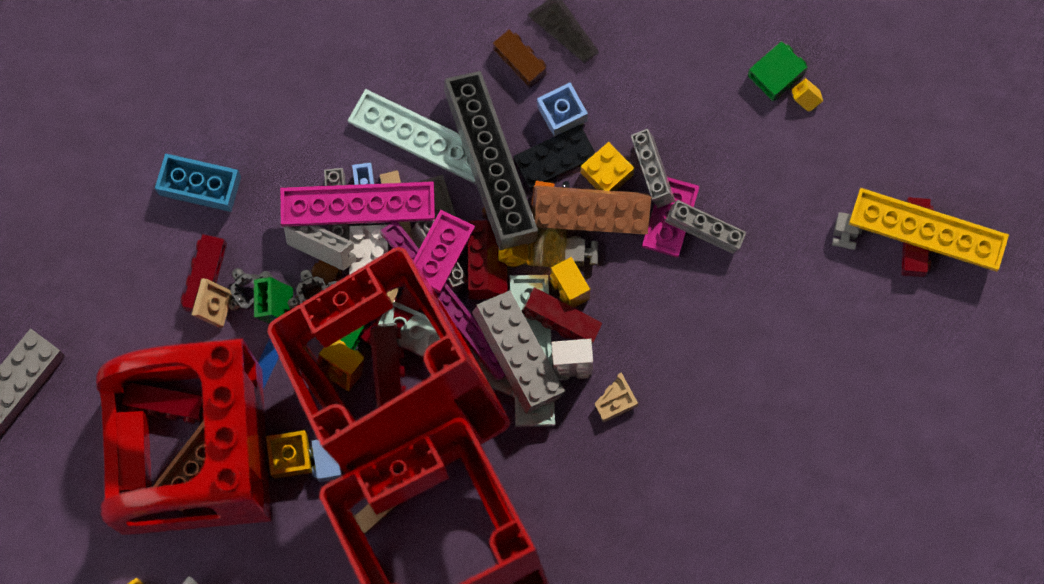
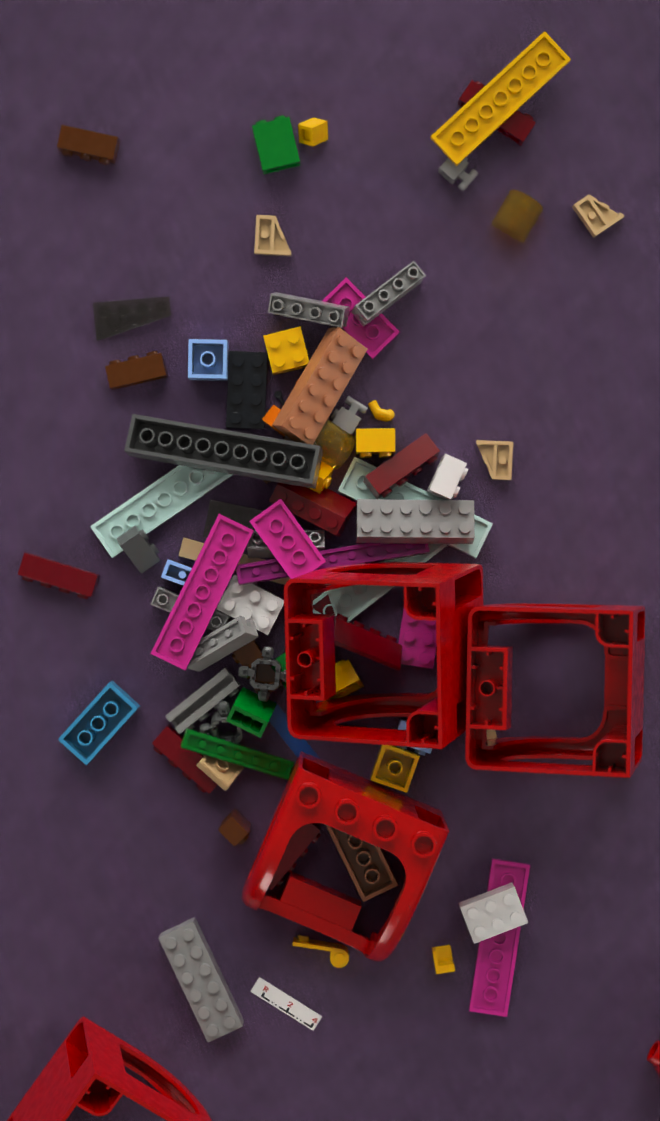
camera: 65 degrees left, 15 degrees up
(24, 477) = (286, 1003): none -> white sticker
(92, 494) = (338, 952): none -> yellow door
(161, 335) = (235, 828): none -> reddish brown brick
(227, 296) = (237, 754): none -> green tile
(261, 259) = (202, 700): none -> light grey brick
(310, 86) = (59, 575): none -> dark red brick
(367, 136) = (138, 549): none -> dark grey brick
(597, 278) = (381, 414): none -> yellow arm
(696, 107) = (269, 237): none -> tan wing
(839, 303) = (517, 215): none -> clear yellow brick
(879, 370) = (596, 215): none -> tan wing

